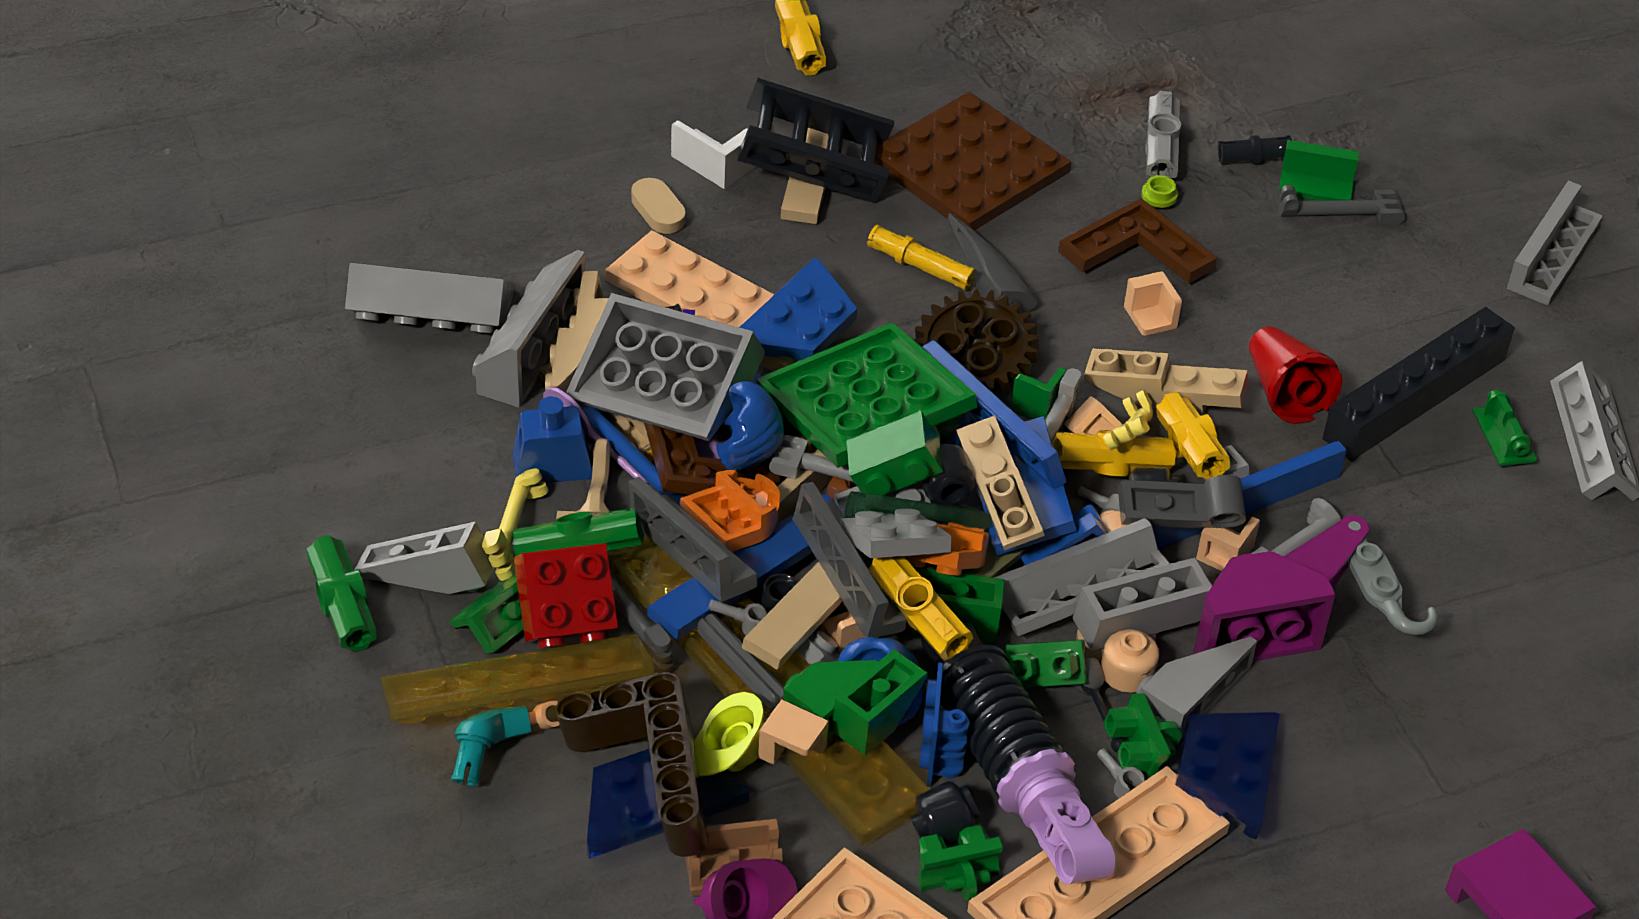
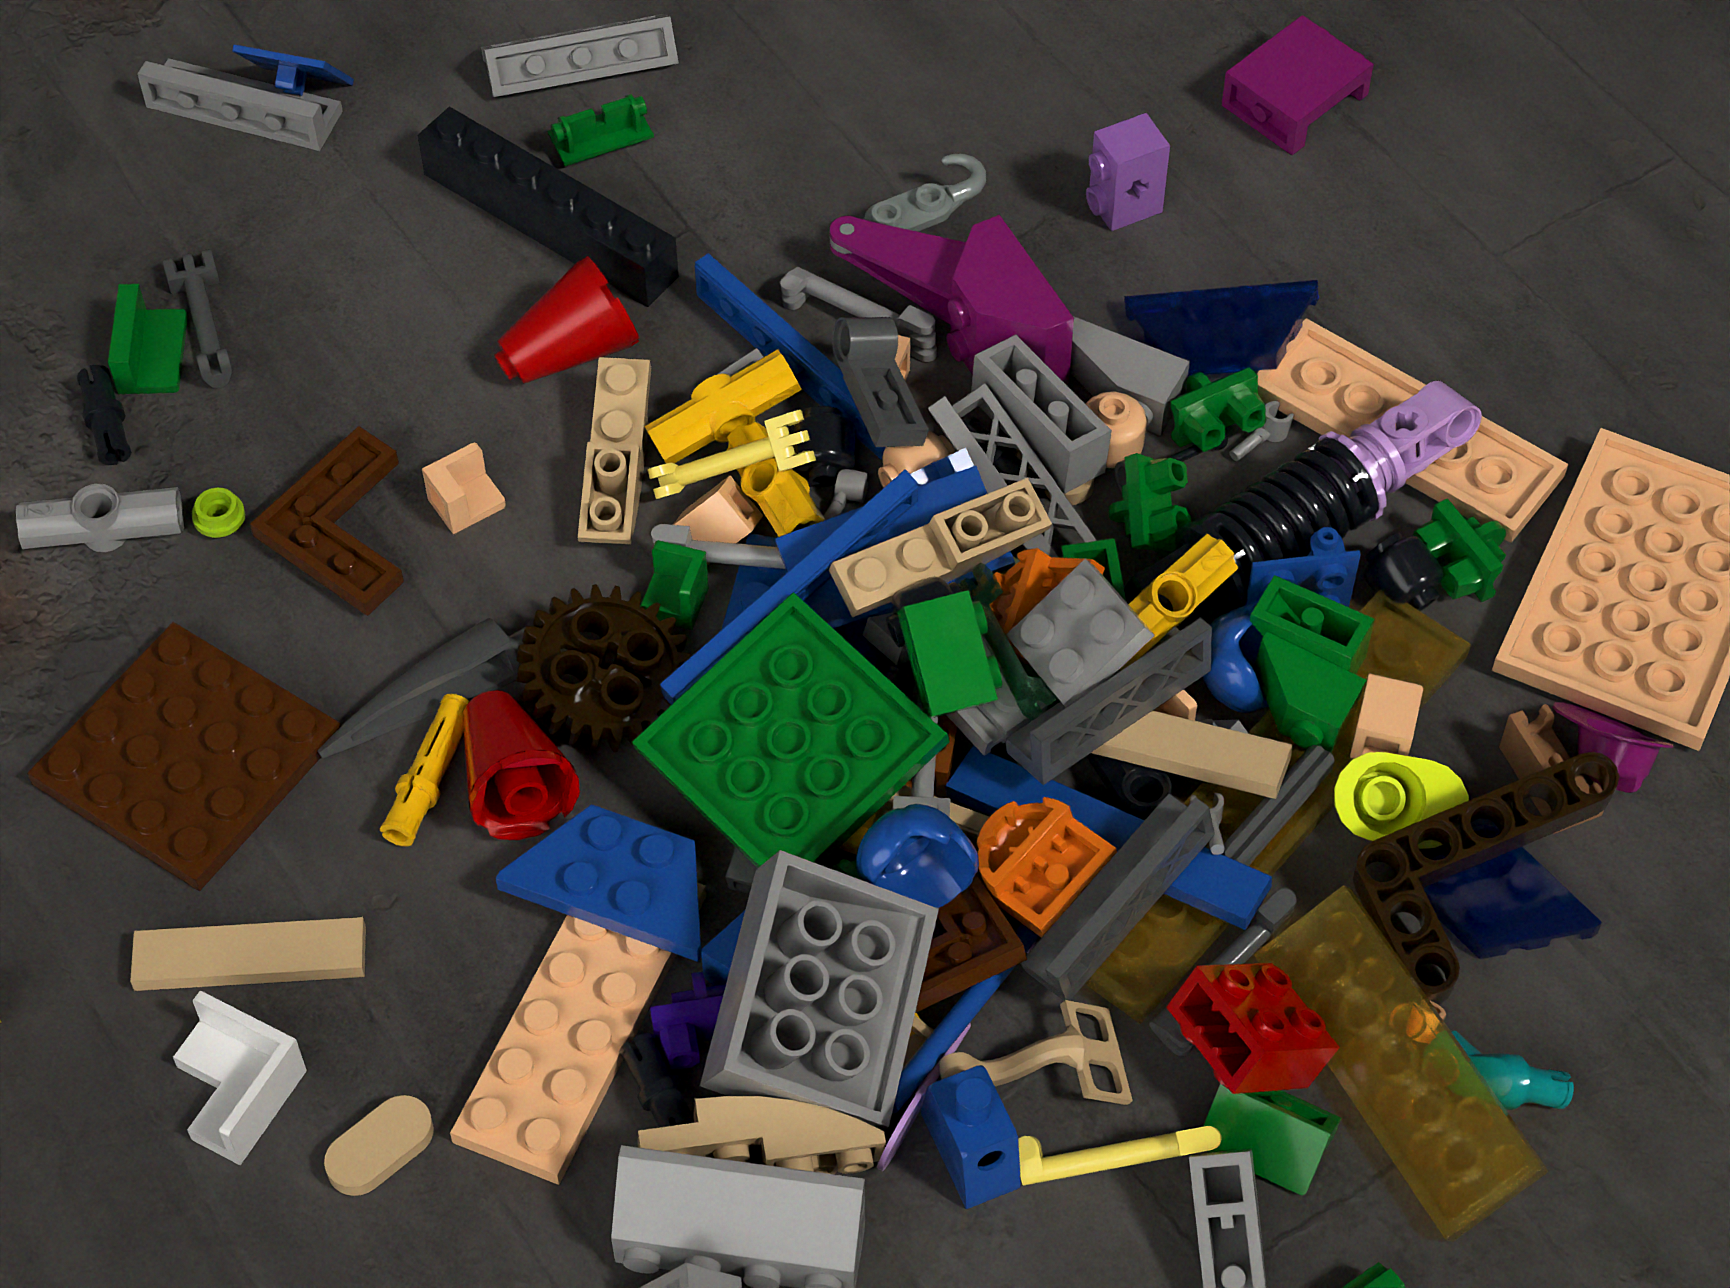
camera: 100 degrees left, 10 degrees up
(616, 529) = (1120, 1016): green piece -> none
(810, 162) = (272, 944): black fence -> none
(905, 282) = (513, 769): none -> red cone
(1404, 727) = (1128, 172): none -> medium lavender brick
(1575, 262) = (292, 69): none -> blue piece

